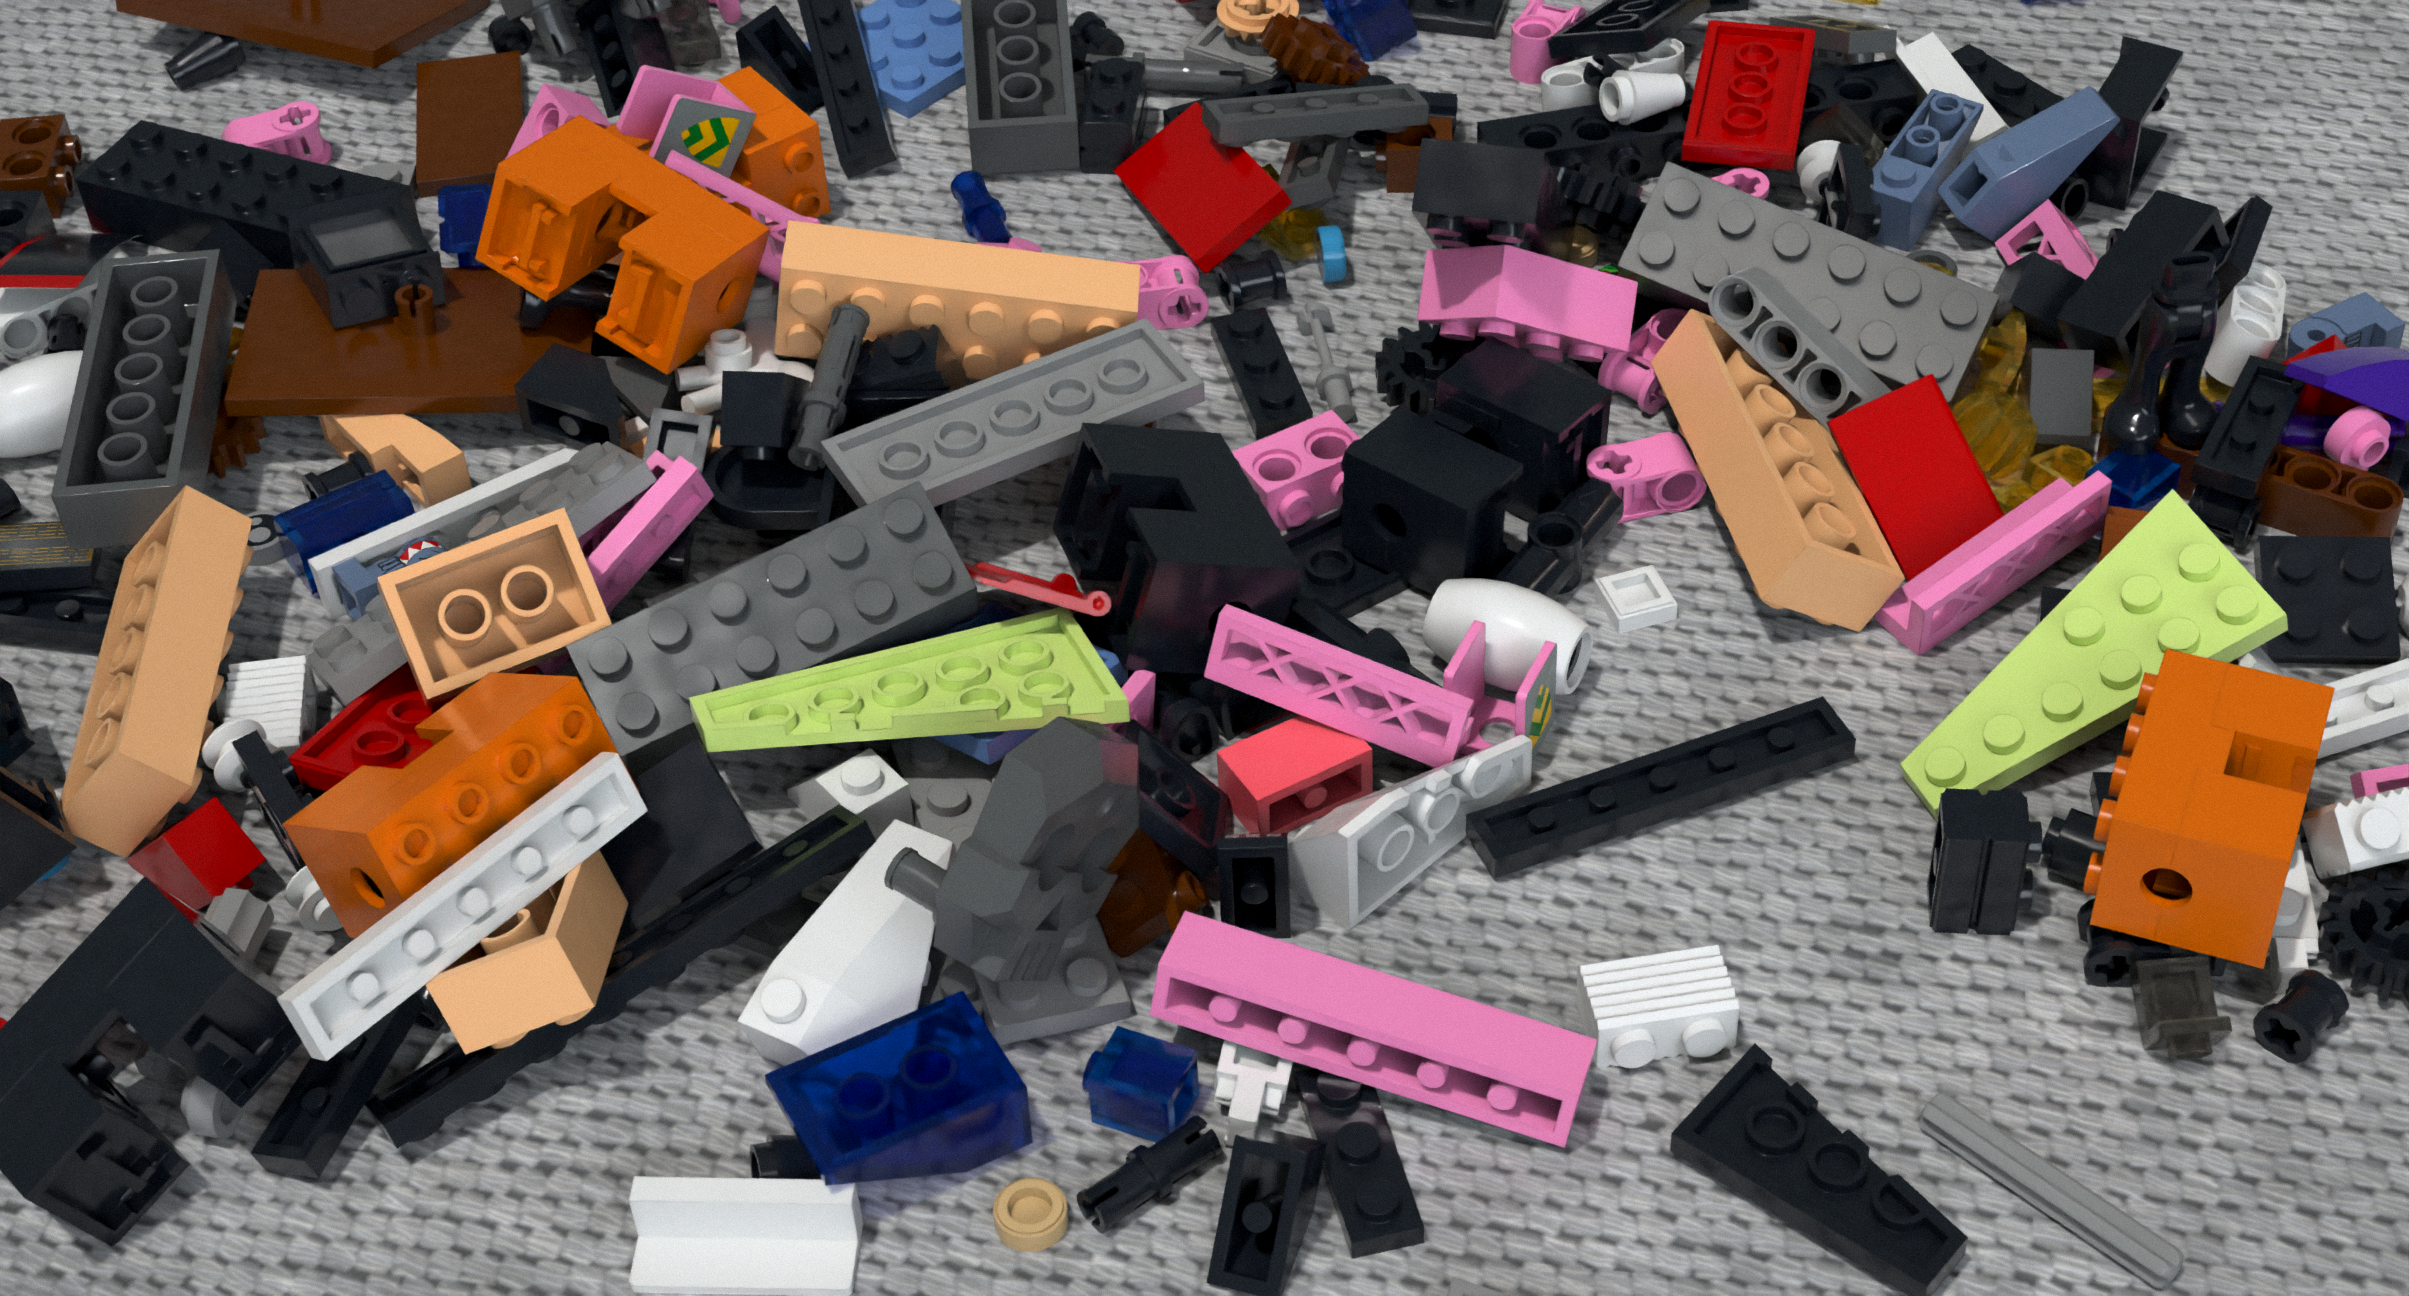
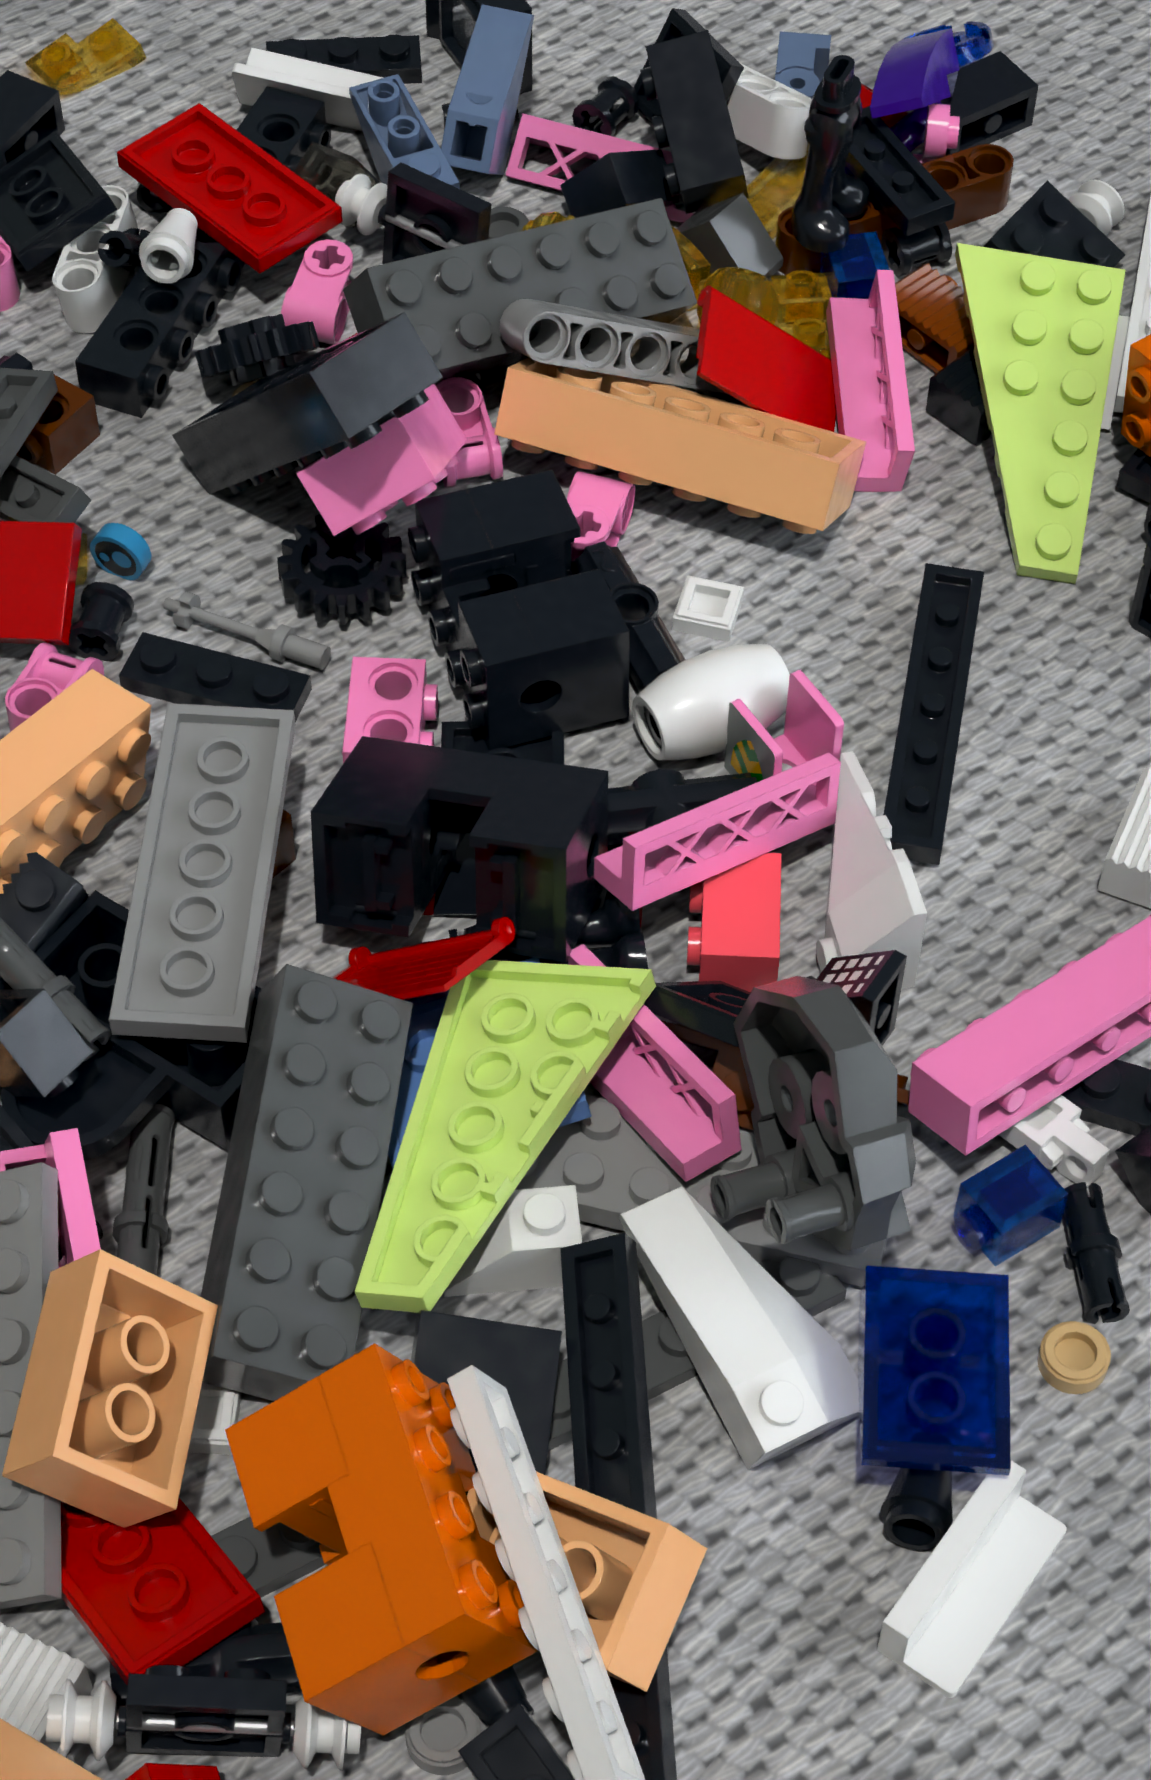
camera: 60 degrees left, 10 degrees up
(1843, 38) = (222, 92): dark grey plate -> none

